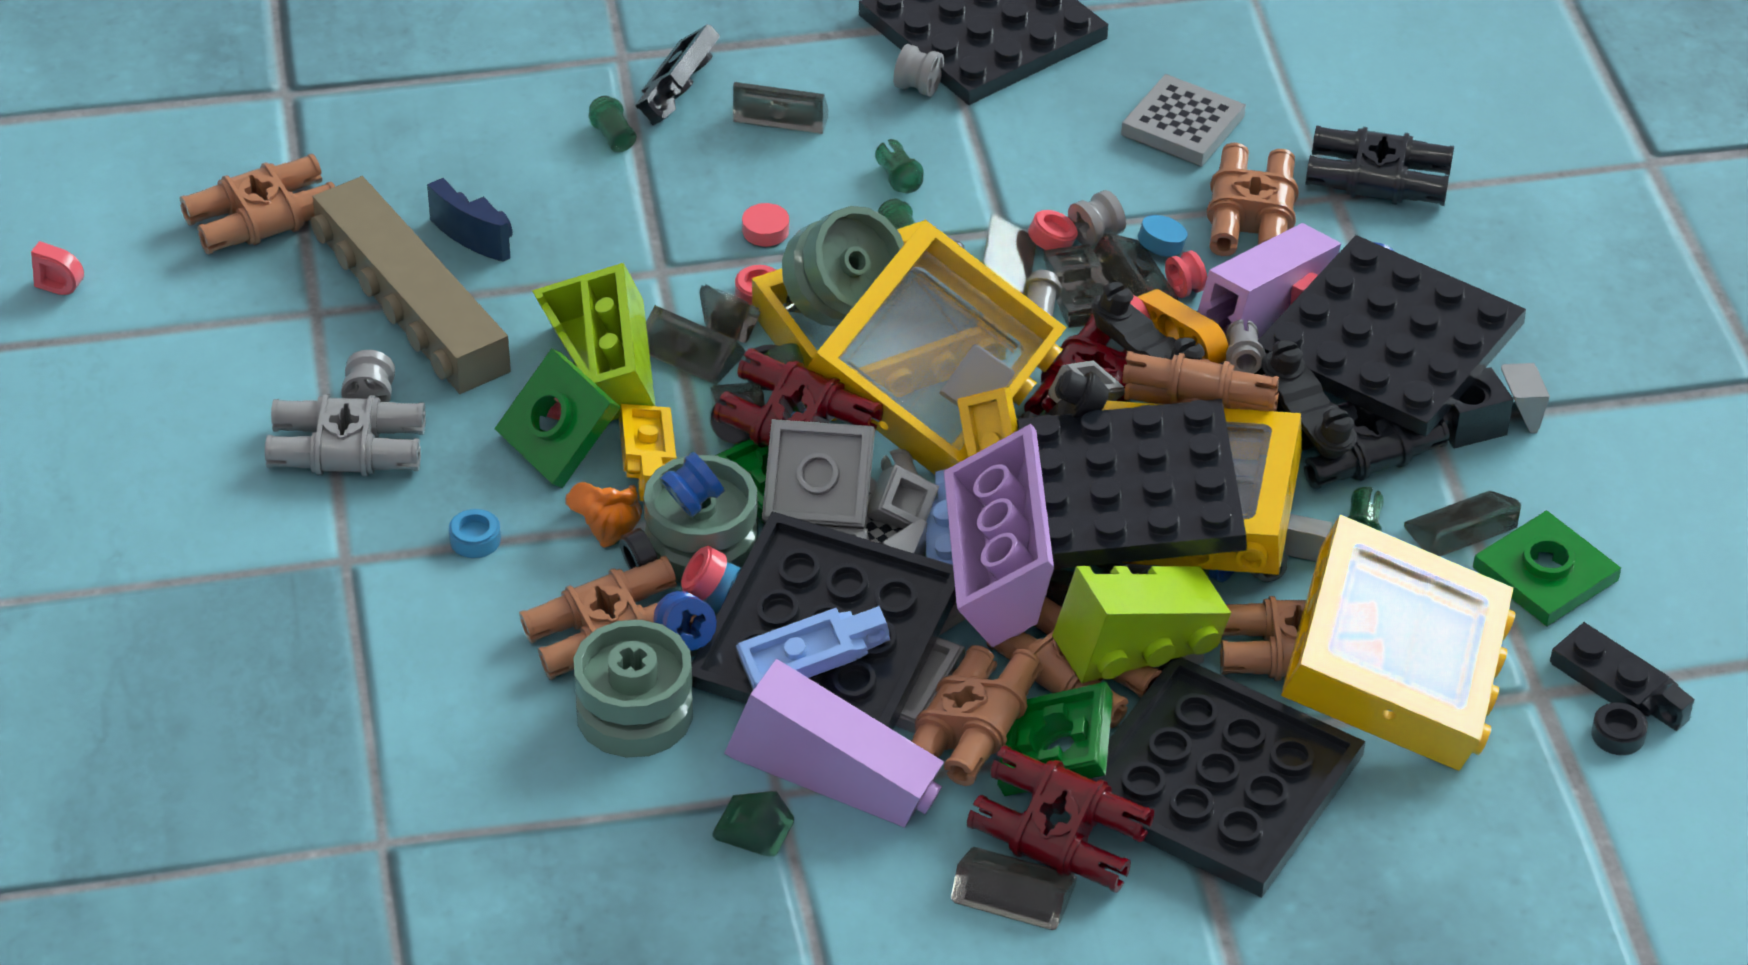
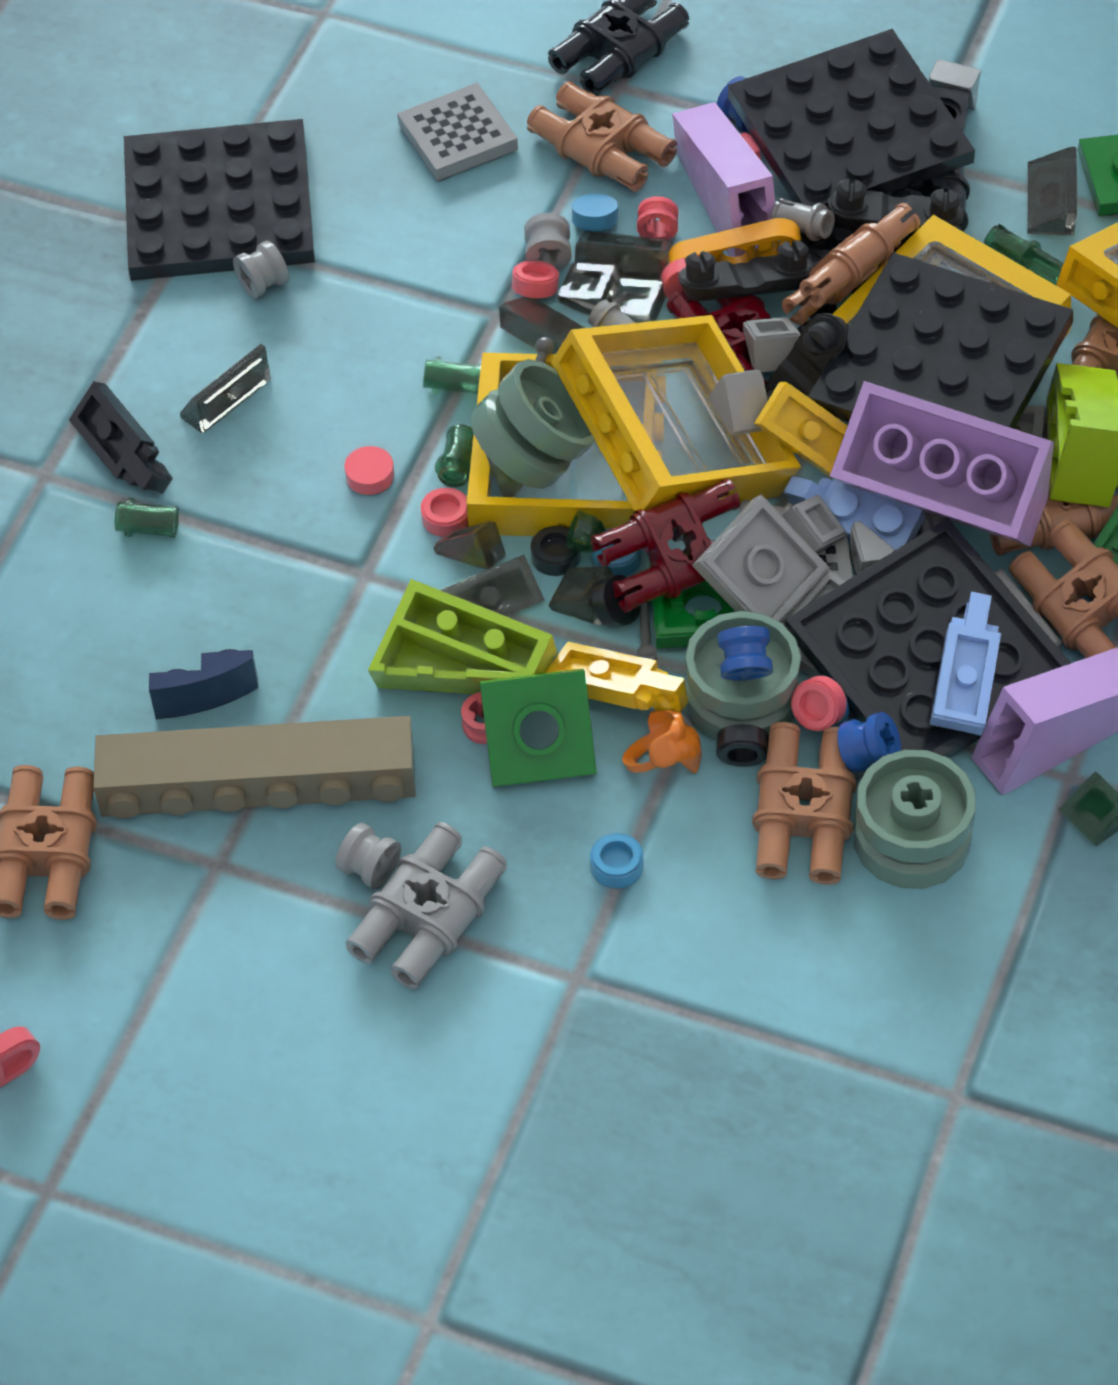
camera: 55 degrees left, 10 degrees up
(903, 173) = (373, 342): clear green pin -> none

